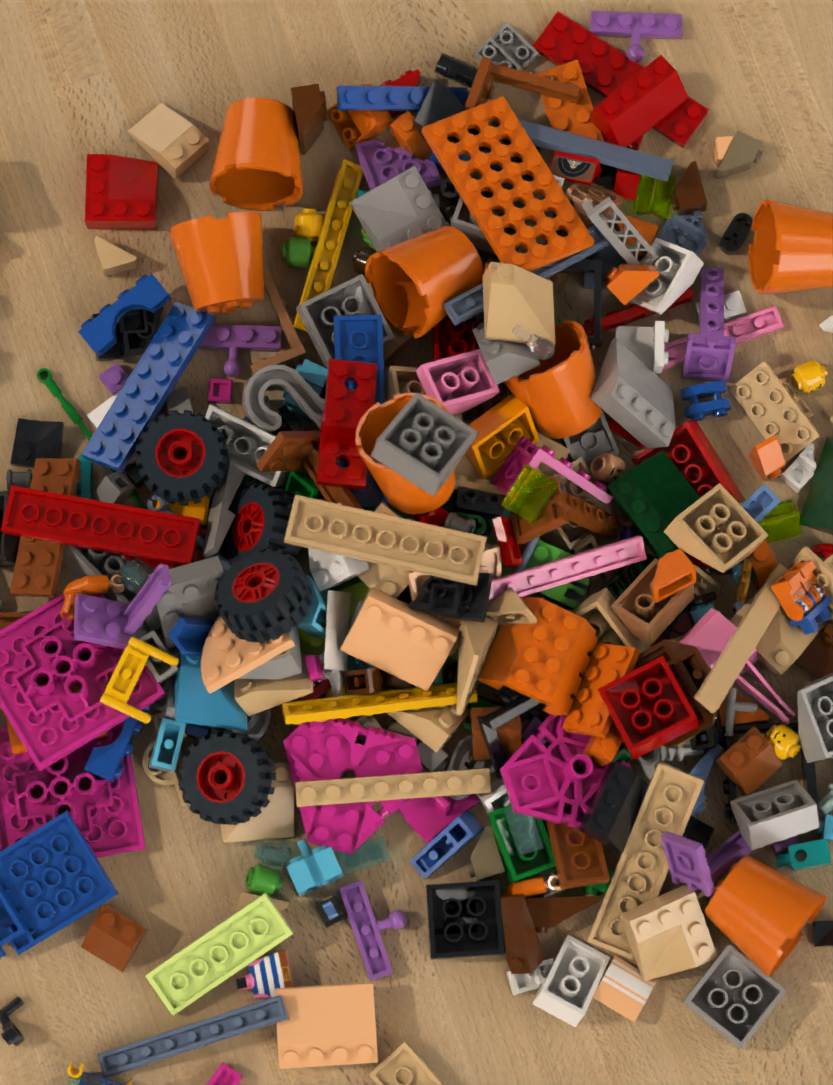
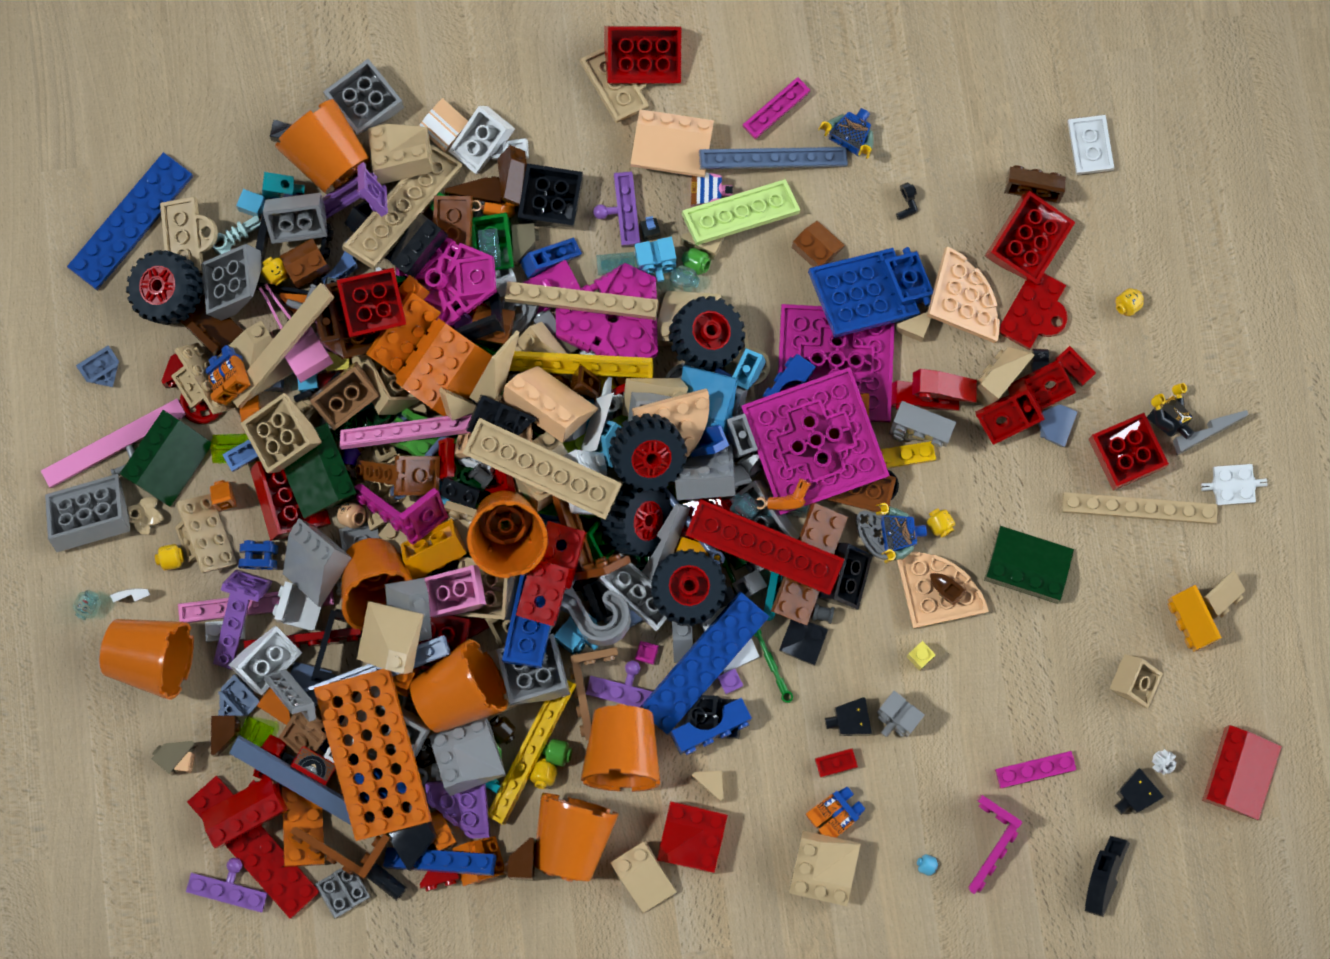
camera: 165 degrees left, 0 degrees up
(115, 622) = (769, 469): medium lavender bracket -> none
(127, 674) = (766, 423): yellow plate -> none
(314, 668) = (620, 398): dark pink tile -> none
(424, 444) = (493, 515): light grey slope -> none
(529, 493) = (418, 487): clear neon green panel -> none
(540, 346) = (380, 597): clear piece -> none
(629, 280) = (292, 659): orange slope -> none
(672, 575) = (322, 408): orange slope -> none
(740, 236) = (197, 693): black beam -> none
(744, 579) = (270, 394): pearl gold wheel -> none
(800, 470) = (199, 484): white slope -> none

